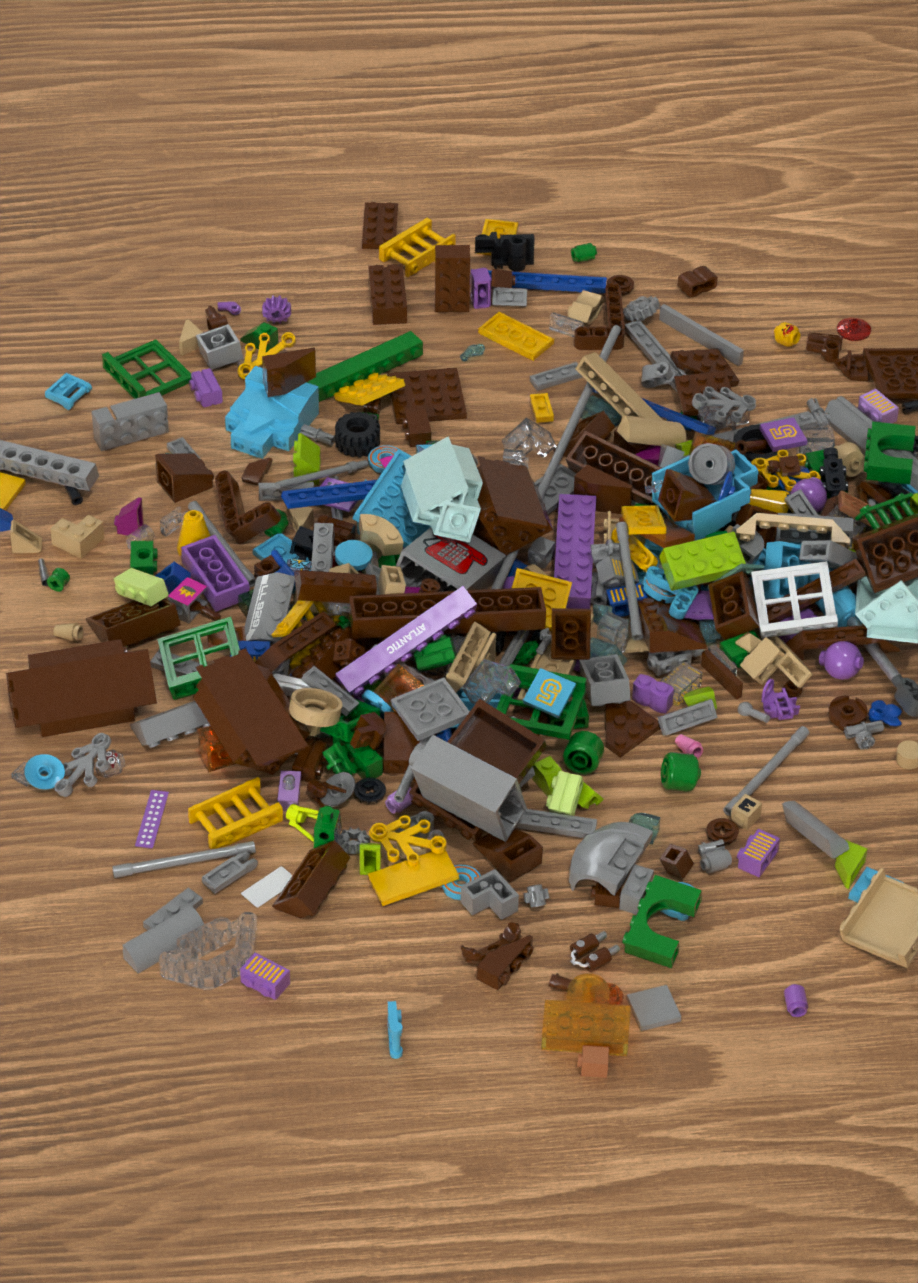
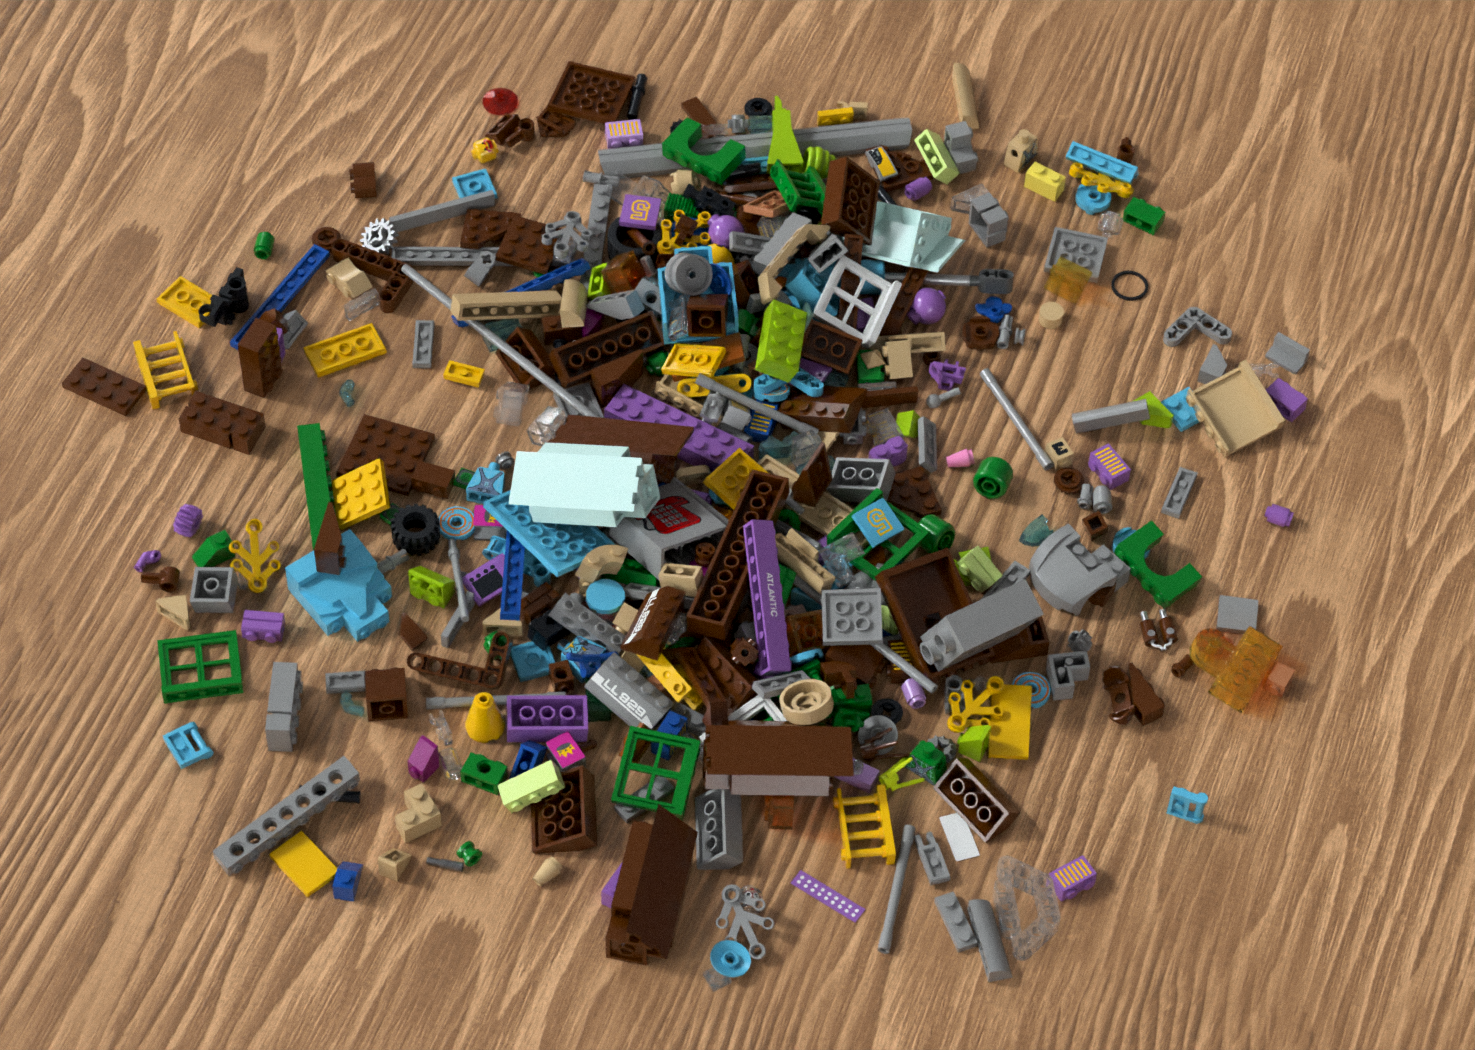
camera: 65 degrees left, 10 degrees up
(751, 344) = (473, 183): none -> medium azure tile
(771, 918) = (1179, 492): none -> light grey tile

